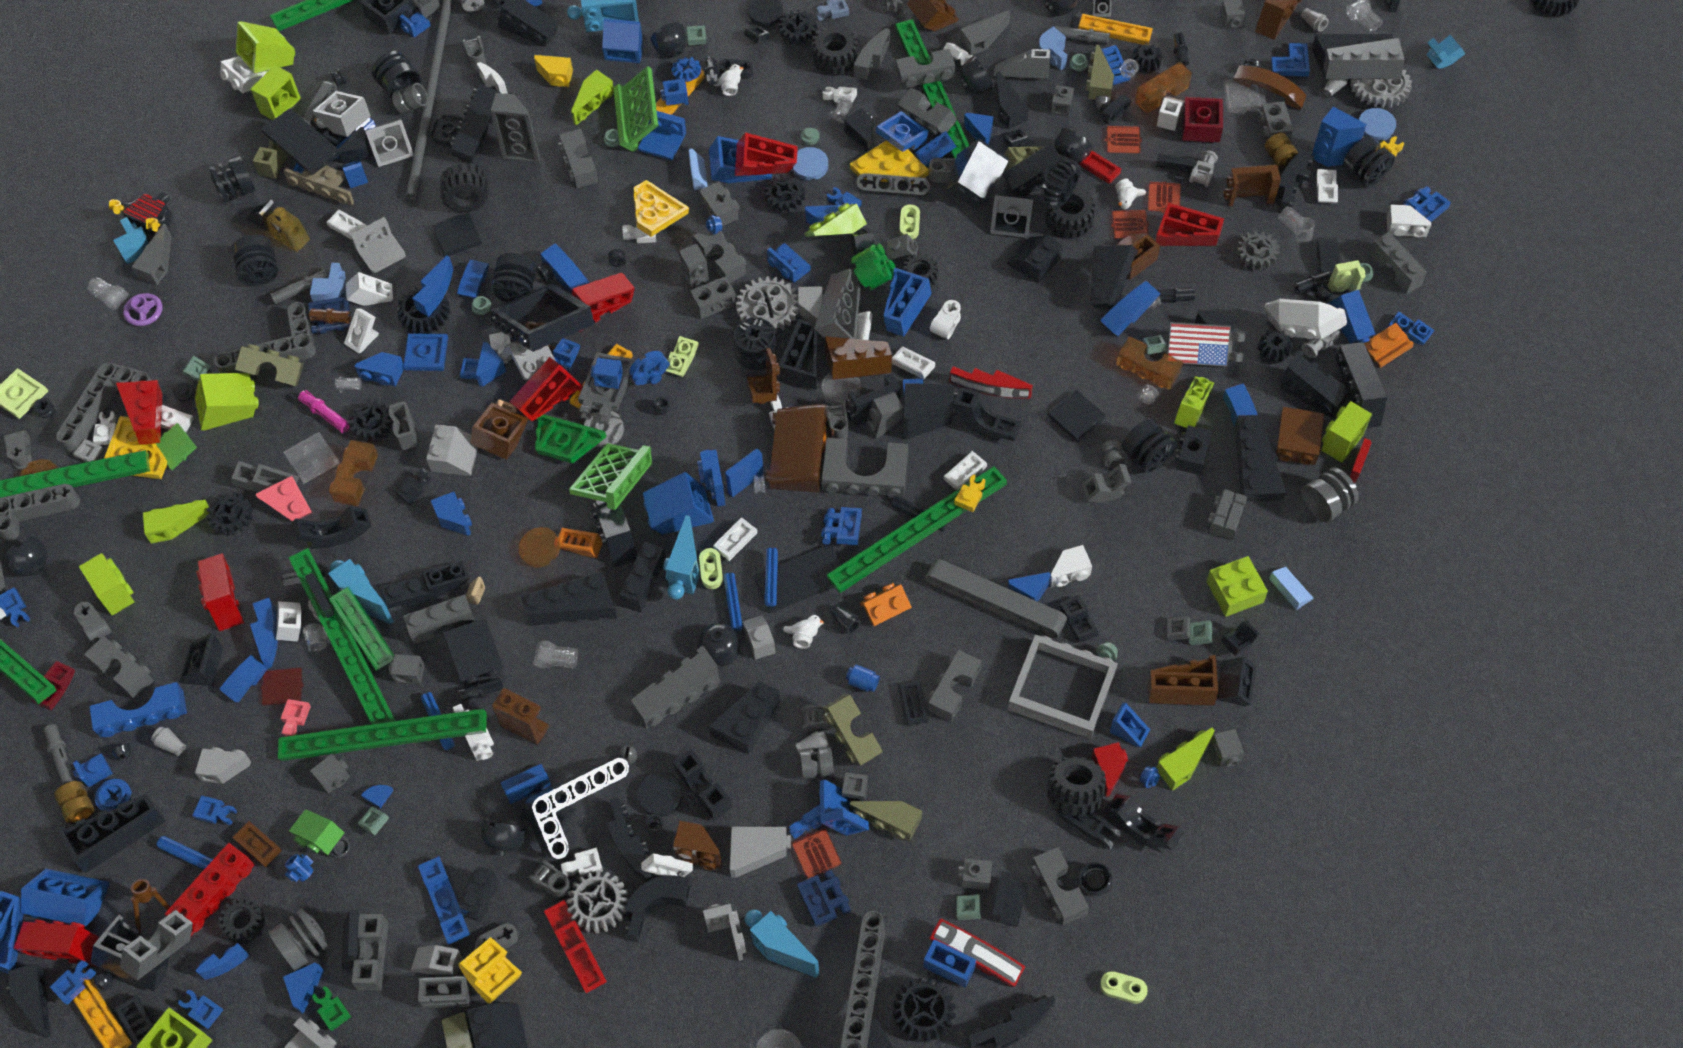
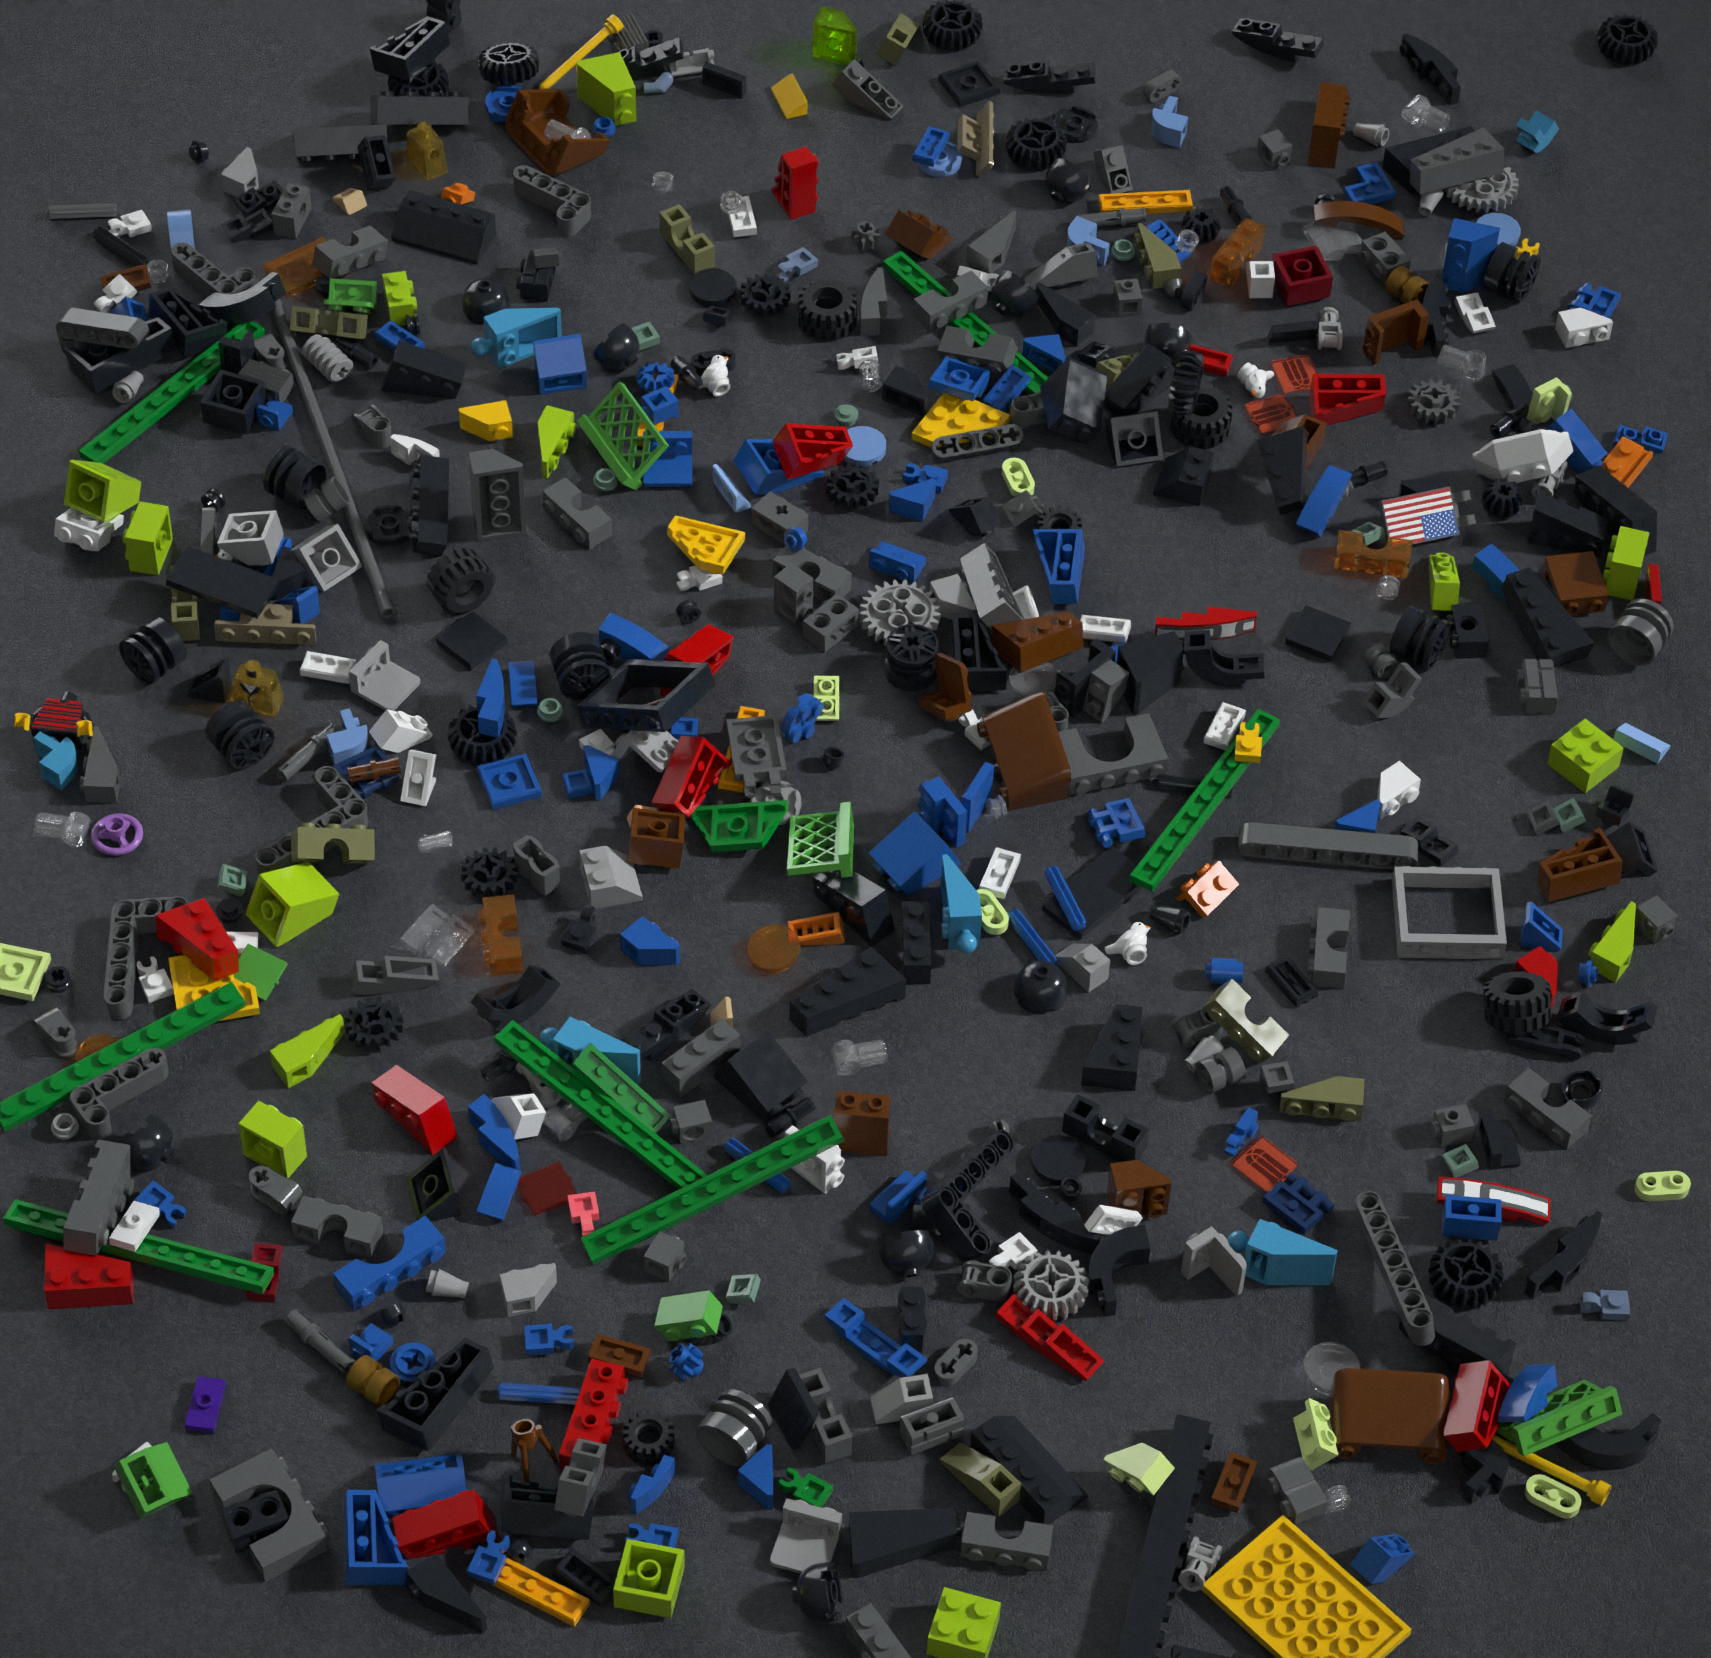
camera: 25 degrees left, 10 degrees down
(87, 451) = (145, 1011): light grey tile -> none
(286, 499) = (437, 987): coral wing -> none
(318, 407) = (412, 877): dark pink pin -> none
(320, 595) = (558, 1064): black tile -> none
(377, 794) = (730, 1262): blue tile -> none
(381, 368) = (467, 813): blue slope -> none
(489, 970) = (970, 1388): yellow slope -> none
(607, 373) = (758, 735): blue brick -> none
(677, 688) = (1022, 1042): dark grey wedge -> none
(756, 847) = (1198, 1175): light grey slope -> none
(836, 811) = (1281, 1113): blue bracket -> none
(844, 221) = (943, 496): lime slope -> none
(873, 266) = (1007, 536): green brick -> none
(946, 319) = (1119, 571): white piece -> none
(1107, 650) = (1479, 860): sand green plate -> none
(1123, 139) = (1217, 323): clear red piece -> none
(1407, 270) = (1611, 379): dark grey arch -> none

